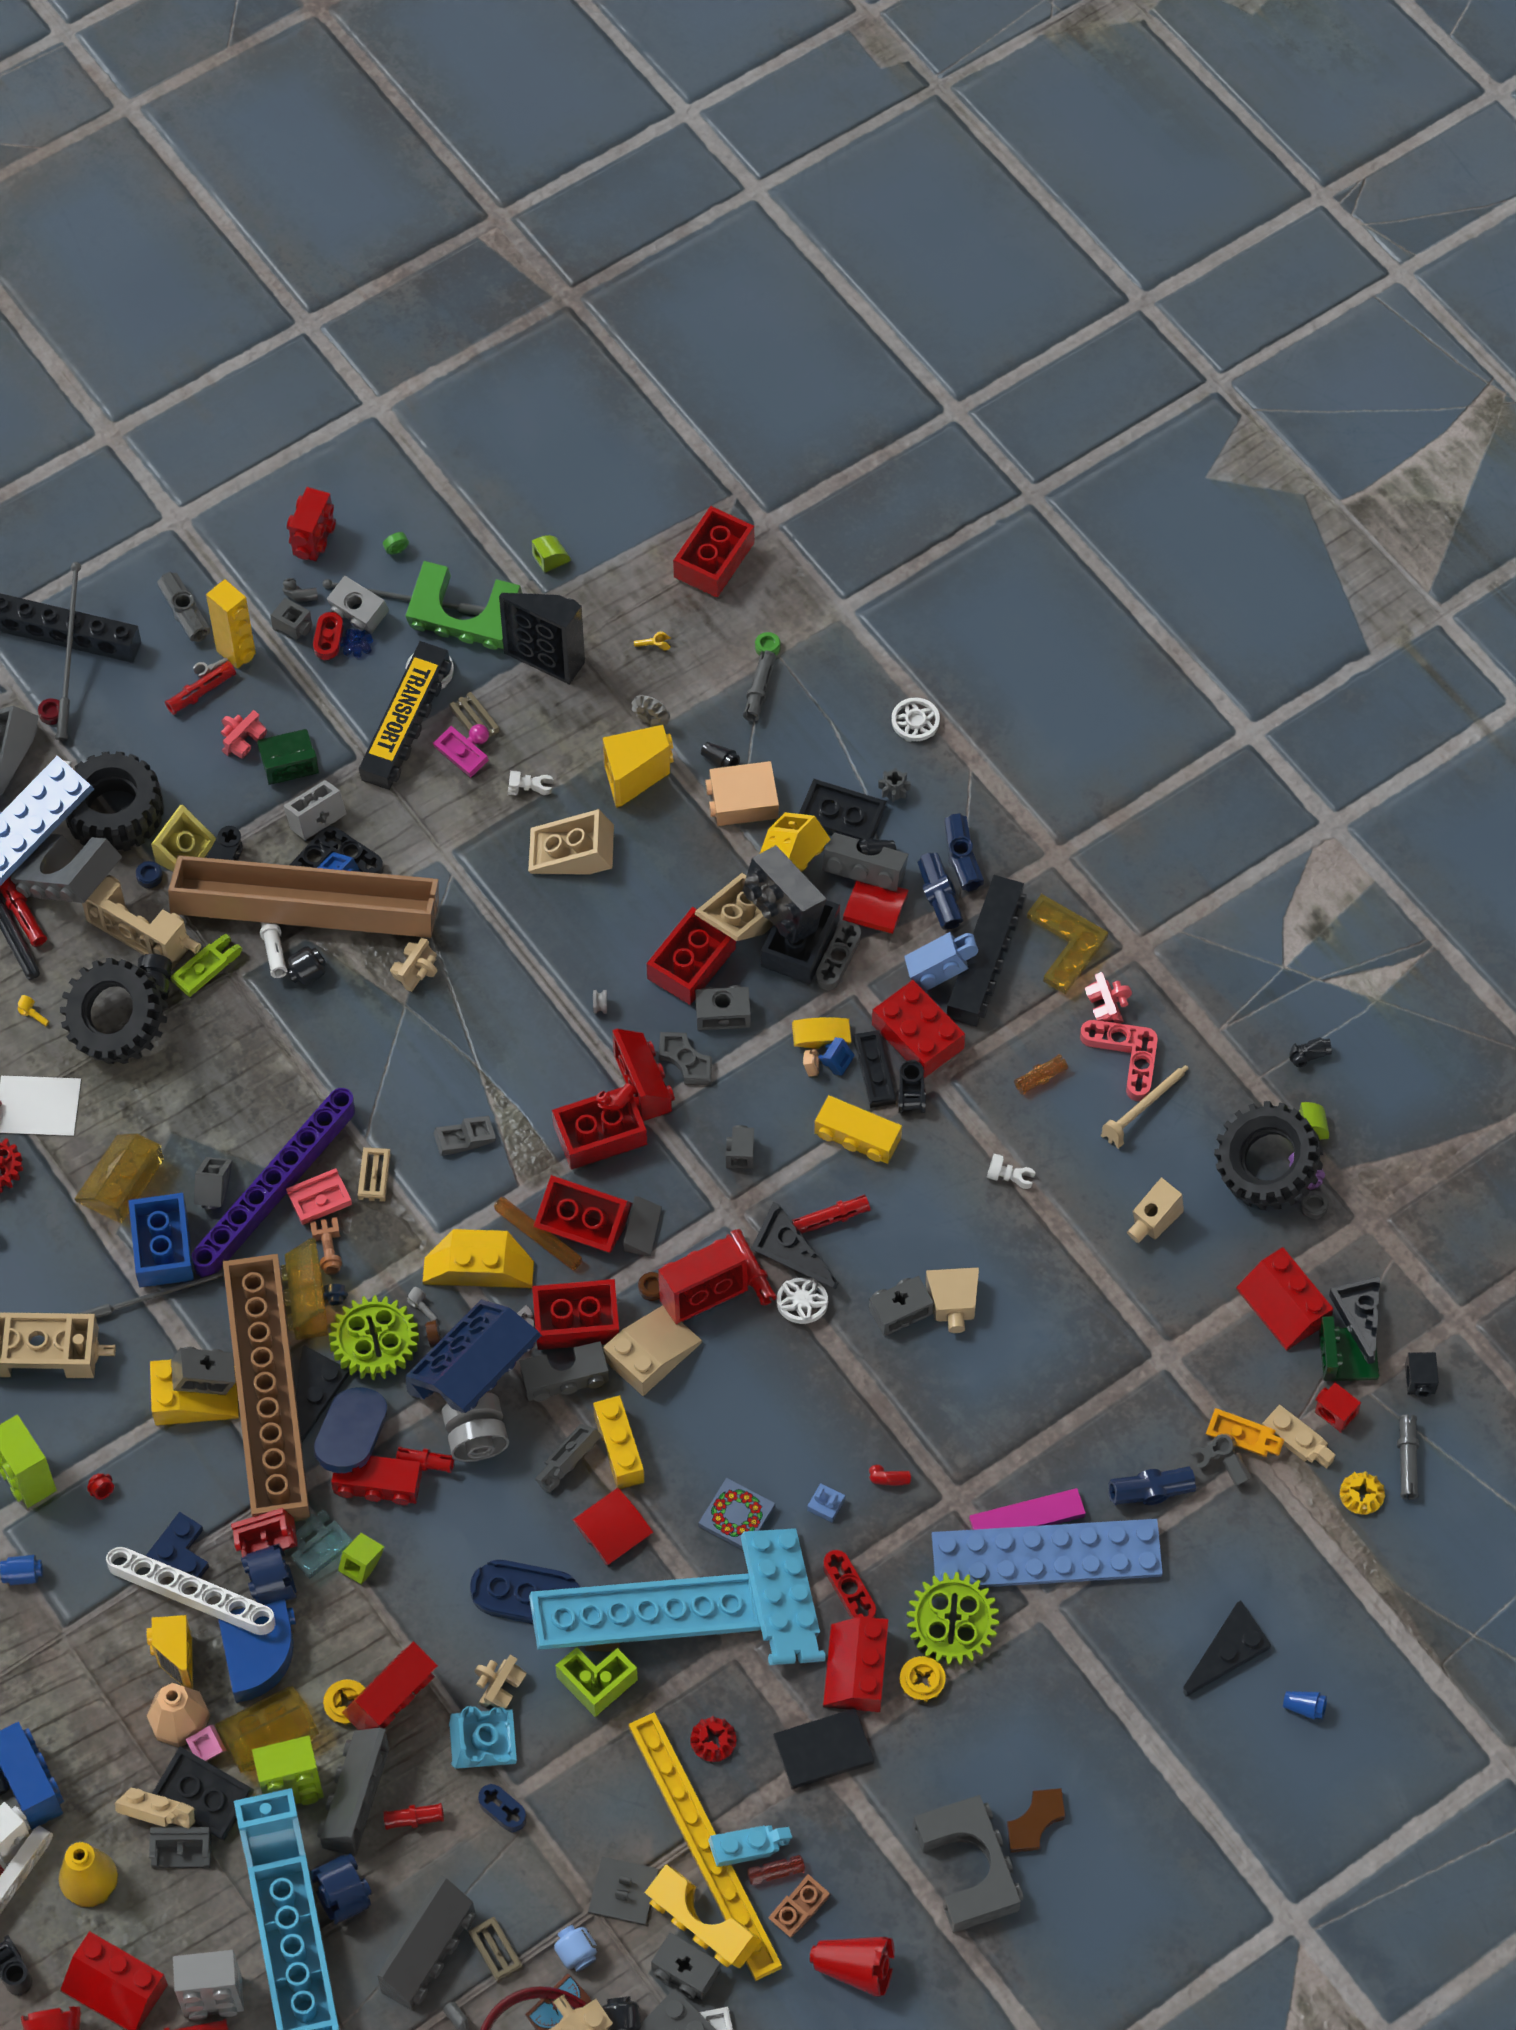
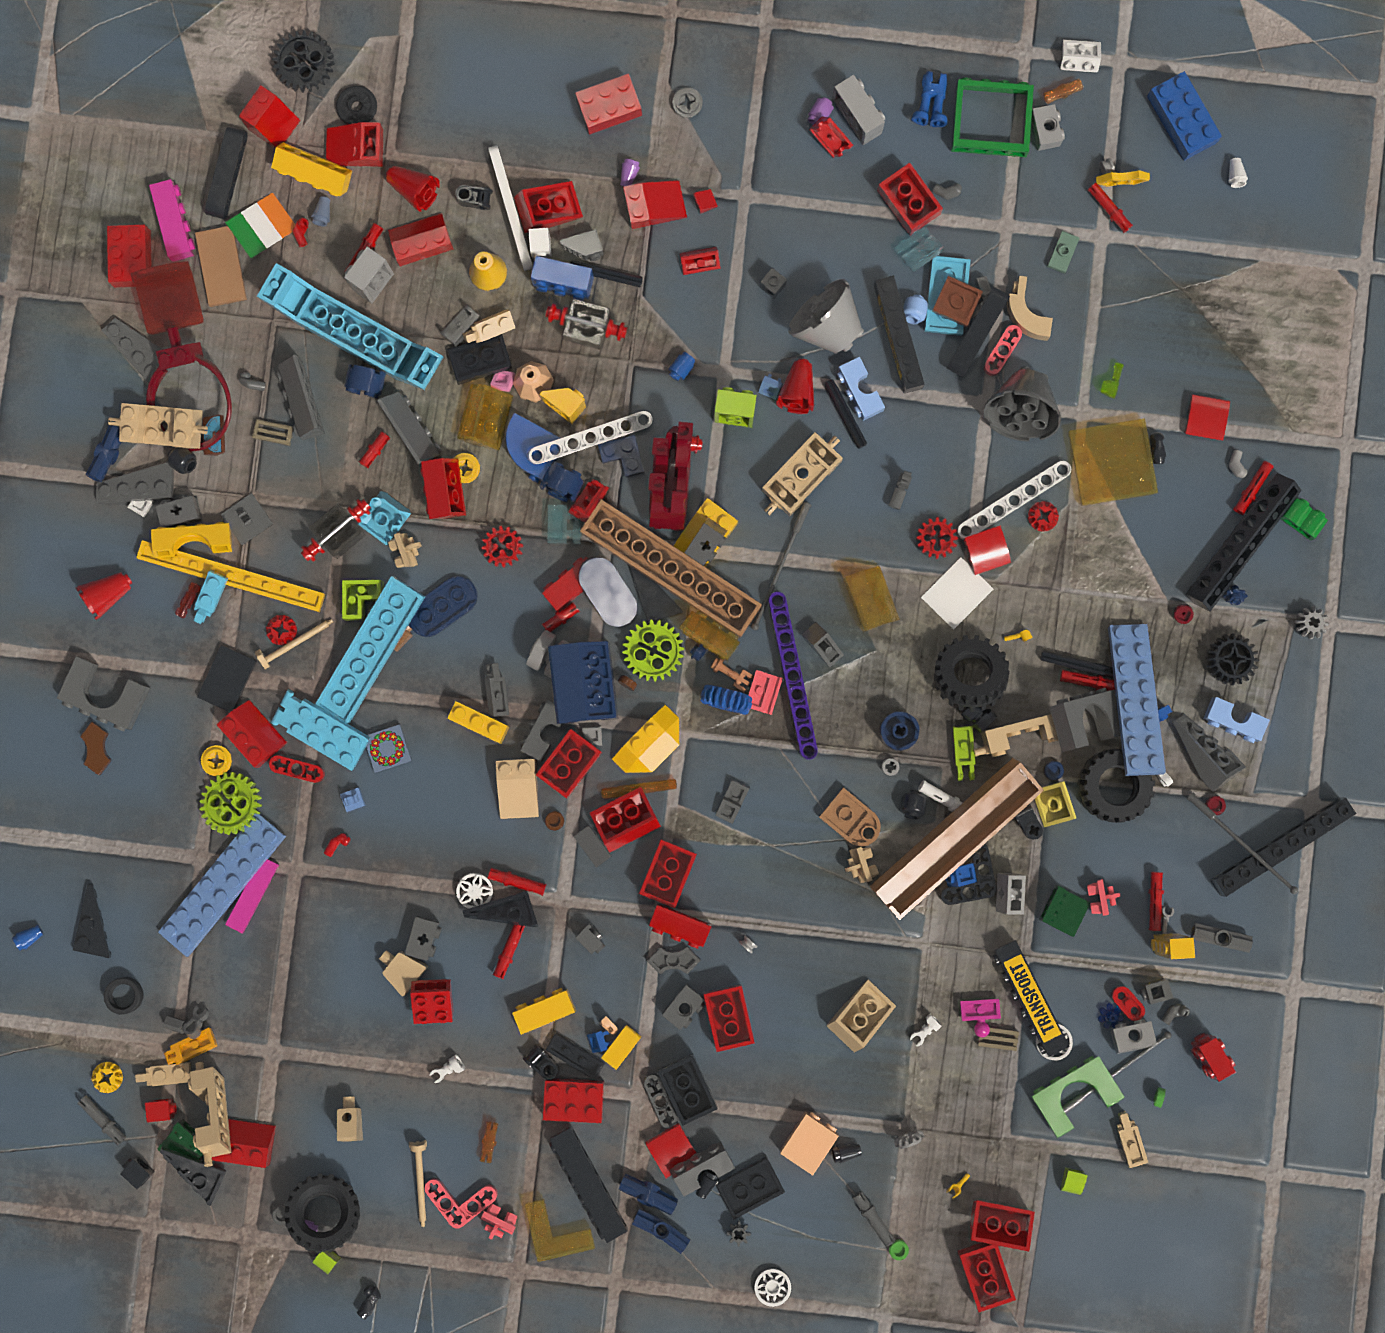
camera: 140 degrees right, 25 degrees up
(57, 1703) = (586, 323): none -> clear smoke brick
(161, 1240) = (808, 586): blue brick -> none
(166, 1463) = (670, 478): none -> dark red piece
(240, 1035) = (888, 728): none -> dark blue brick
(283, 1027) = (887, 761): none -> light grey bush
(289, 1766) = (441, 400): lime brick -> none
(360, 1216) = (726, 699): none -> blue gear
(360, 1558) = (535, 540): lime brick -> none
(373, 1194) = (764, 745): tan tile -> none
(376, 1013) = (850, 818): none -> medium nougat plate
(411, 1572) = (513, 545): none -> red gear
(415, 1300) = (658, 692): light grey hand -> none
(462, 535) = (1131, 1141): none -> tan hinge
(506, 1803) = (340, 492): dark blue beam -> none
(543, 1766) = (336, 531): none -> clear smoke brick
(544, 633) = (1006, 1120): black slope -> none
(576, 1948) = (234, 468): light blue head -> none
(612, 1526) = (437, 680): red slope -> none
(617, 1101) = (668, 892): red arm -> none
(636, 761) = (881, 1099): yellow slope -> none
(653, 572) = (1001, 1225): none -> red slope
(703, 1279) = (526, 845): red brick -> none
(734, 913) = (729, 1067): tan slope -> none
(763, 1723) = (265, 660): none -> tan piece
(784, 894) = (707, 1094): black brick -> none
(797, 837) = (745, 1129): yellow slope -> none
(799, 1906) = (159, 595): nougat slope -> none
(940, 959) = (599, 1149): medium blue brick -> none
(954, 1235) = (431, 1001): none -> red brick
(1152, 1486) = (206, 972): dark blue piece -> none
(1268, 1529) = (108, 997): none -> black tyre
(1297, 1302) = (210, 1087): none -> tan brick

